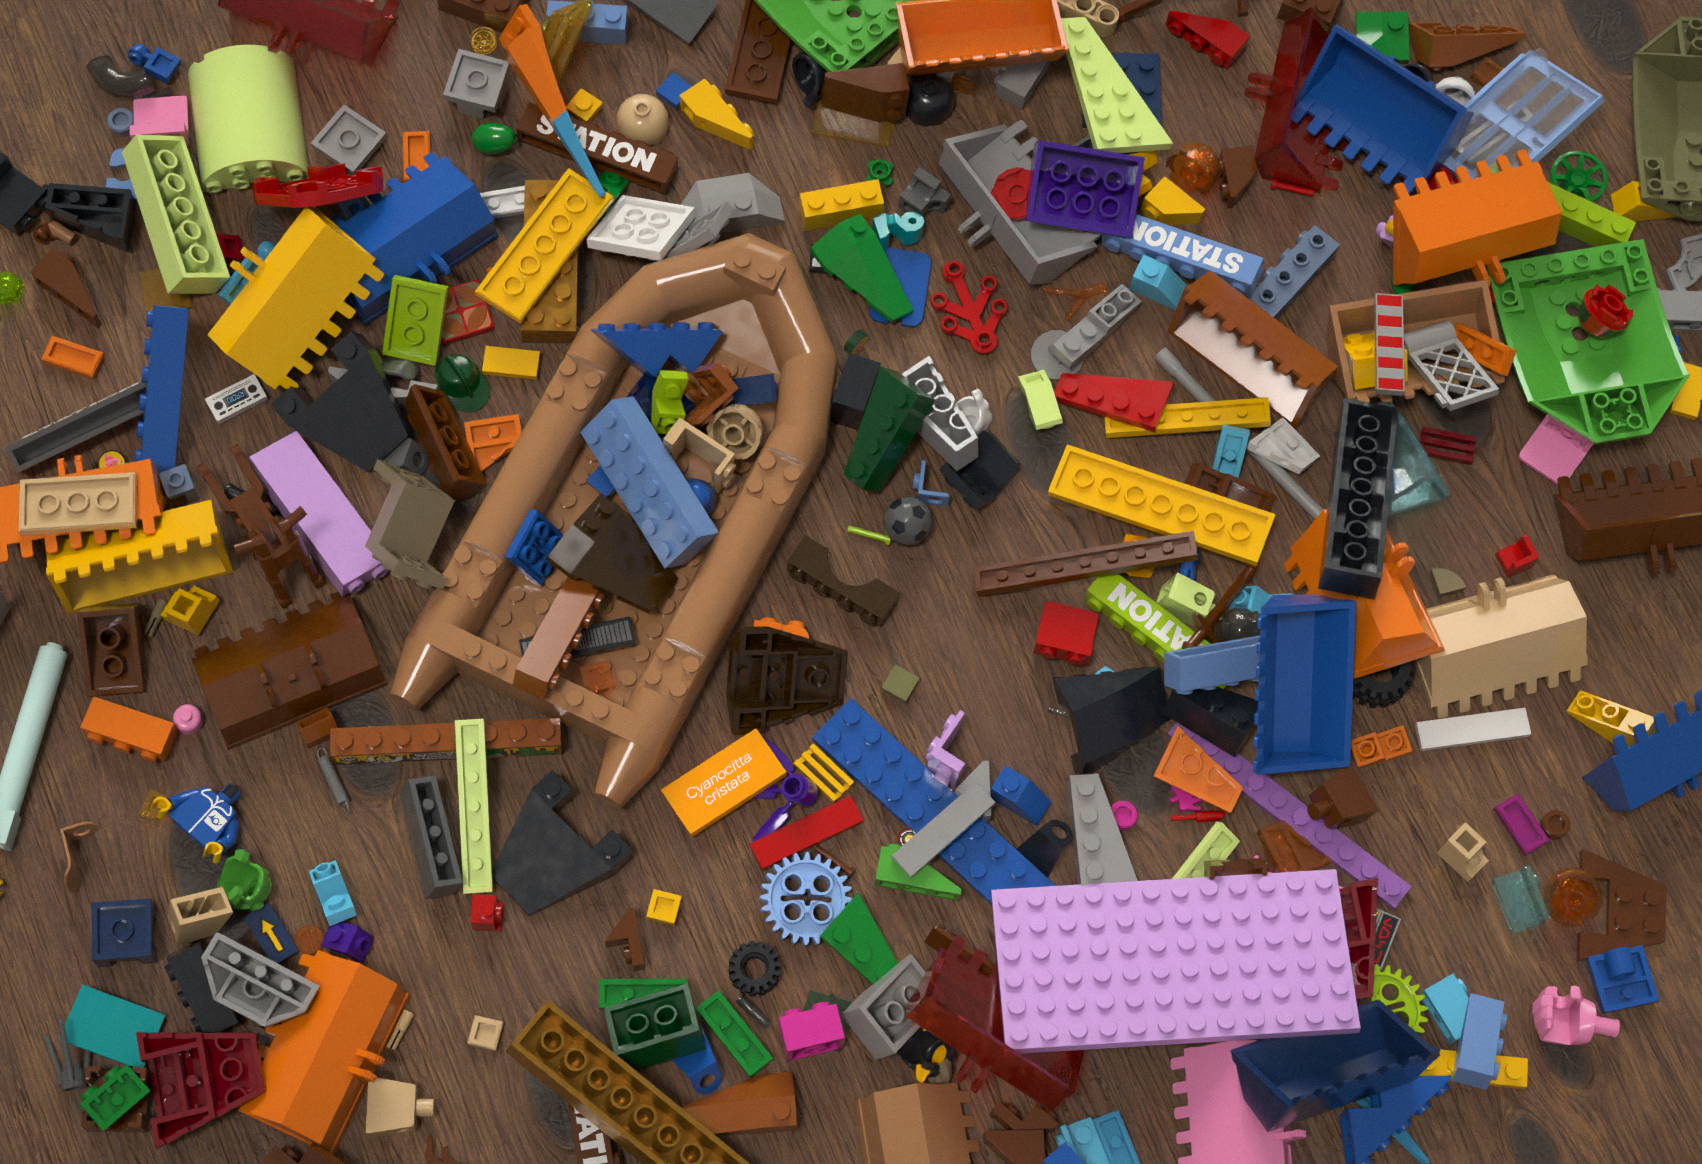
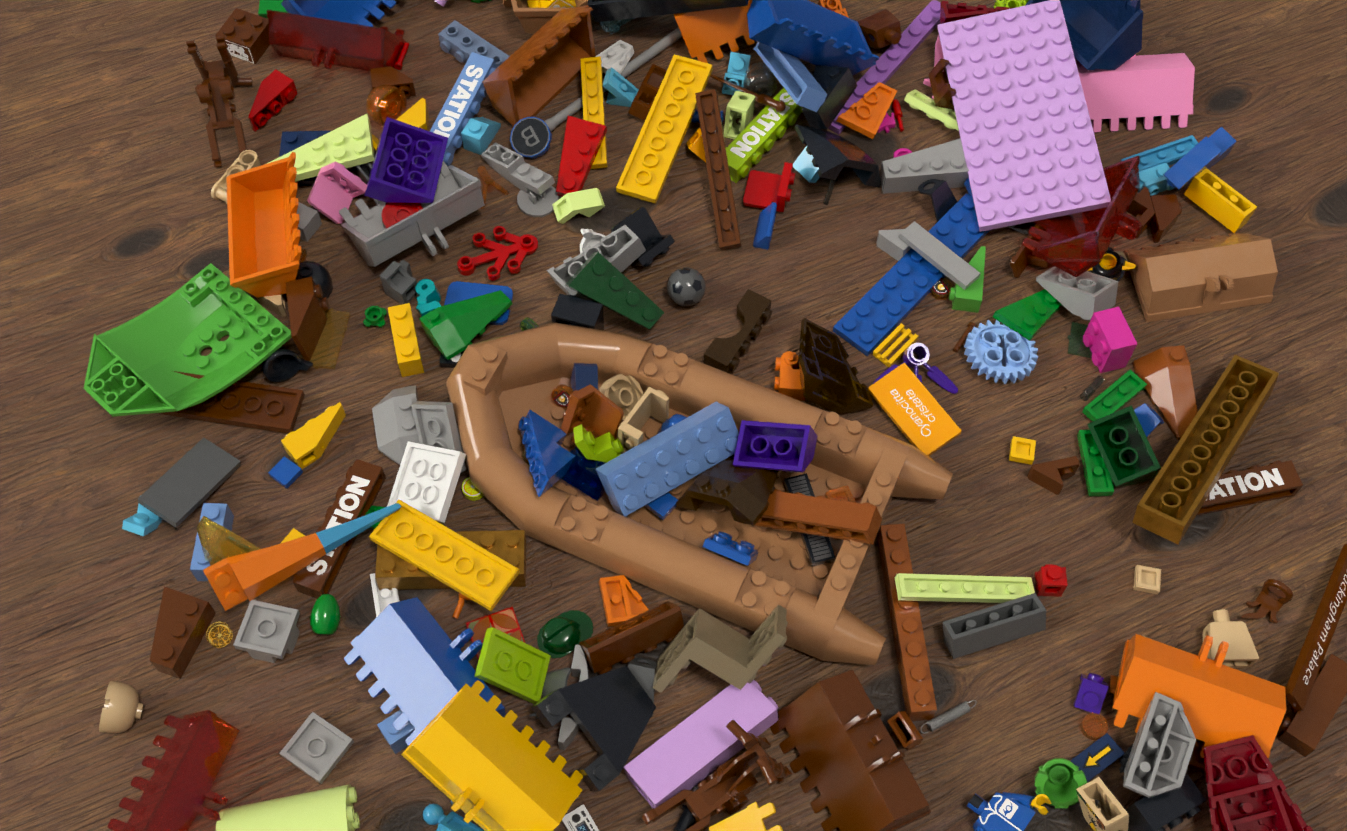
camera: 85 degrees left, 10 degrees down
(322, 187) = (382, 753): red tile -> none
(332, 892) = (1052, 708): medium azure slope -> none
(415, 148) = (336, 687): orange tile -> none
(511, 362) = (546, 592): yellow tile -> none
(546, 858) = (994, 537): black wedge -> none
(643, 119) = (313, 495): tan cylinder -> none
(648, 592) = (775, 446): none -> dark purple slope
(749, 369) = (561, 395): none -> tile
(760, 985) = (1056, 396): black tyre -> none
(806, 832) = (946, 355): red tile -> none
(866, 533) = (697, 307): lime piece -> none
(900, 683) = (816, 296): olive tile -> none
(924, 495) = (652, 282): medium blue bracket -> none
(940, 762) = (870, 258): lavender bracket -> none
(1006, 628) = (765, 227): none -> blue slope
(1019, 795) = (898, 216): blue slope -> none
(1052, 113) = (335, 190): none -> bright pink bracket
(1147, 342) = (531, 137): none -> black tile
(1289, 850) = (918, 62): clear orange wing -> none

